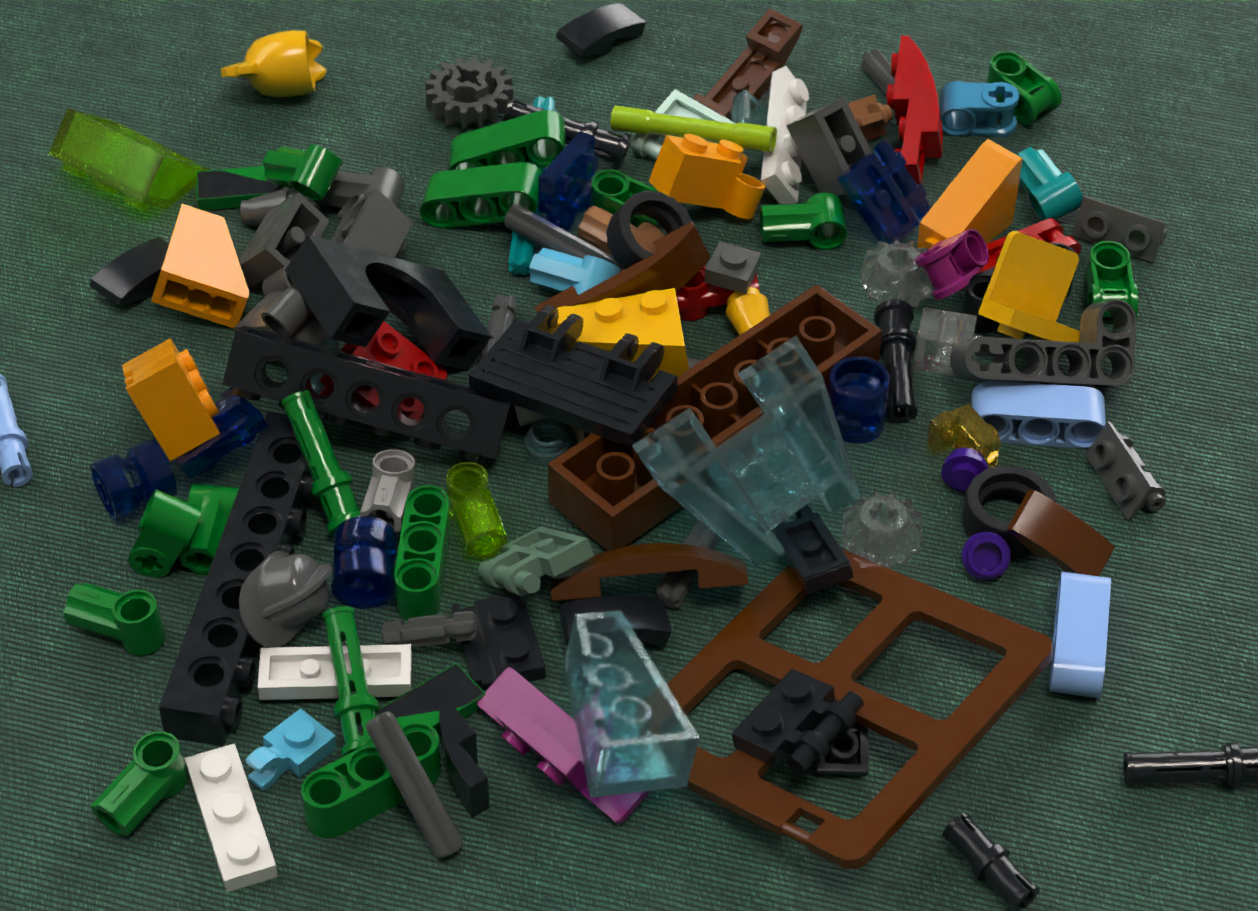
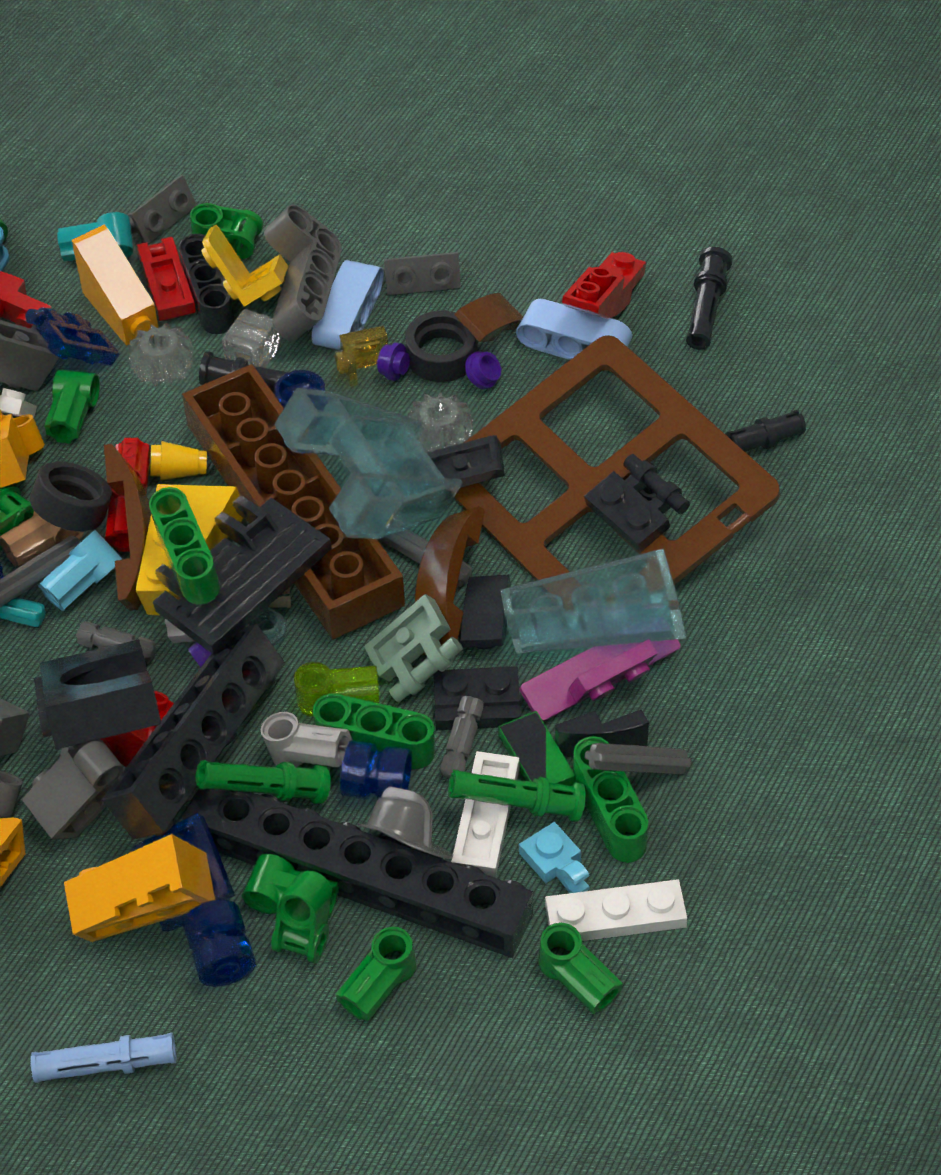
camera: 75 degrees left, 5 degrees up
(563, 305) = (184, 545): none -> green beam
(732, 267) = (137, 446): dark grey plate -> none
(954, 262) = (184, 308): magenta piece -> none
(1139, 639) = (606, 288): none -> red slope

